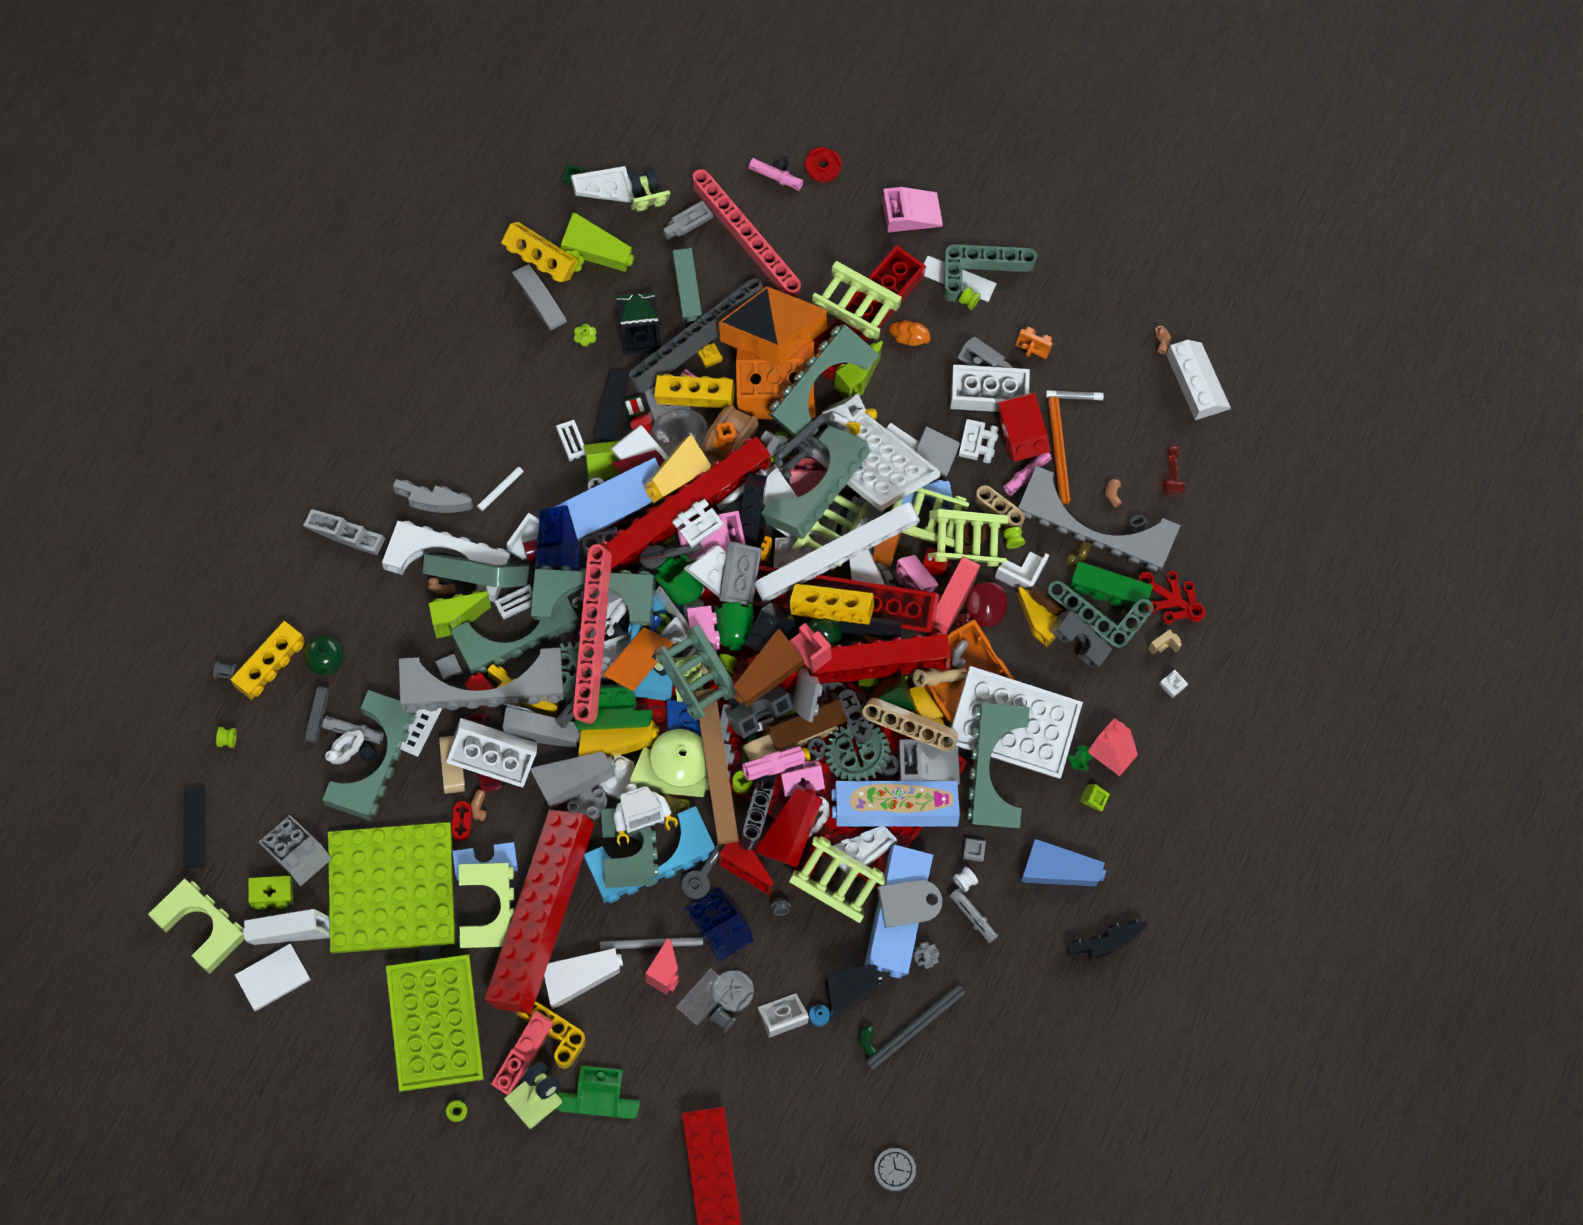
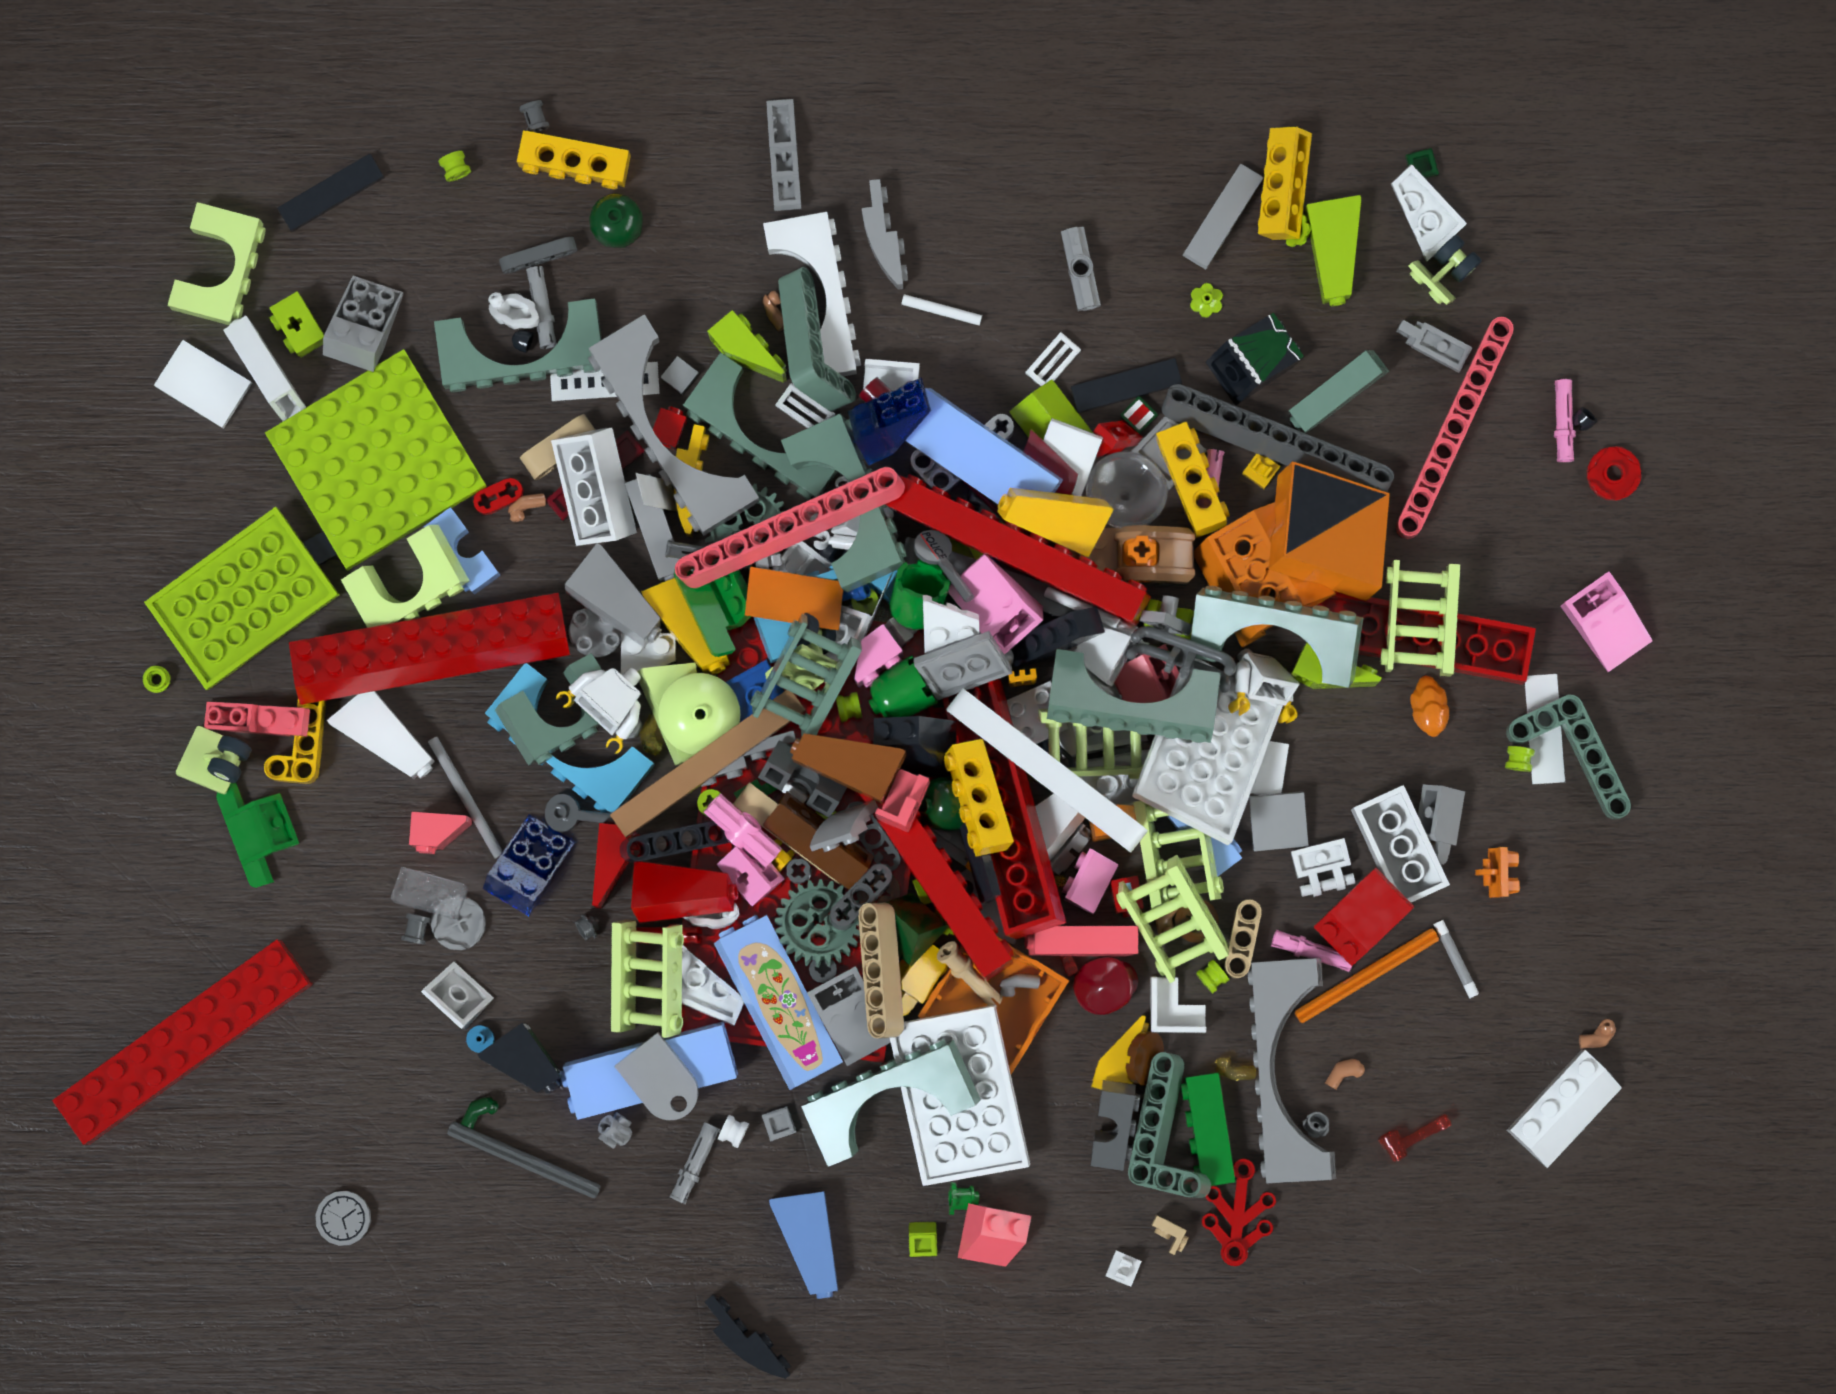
camera: 75 degrees right, 15 degrees up
(511, 391) = (1077, 252): none -> light grey piece
(702, 527) = (989, 587): white plate -> none

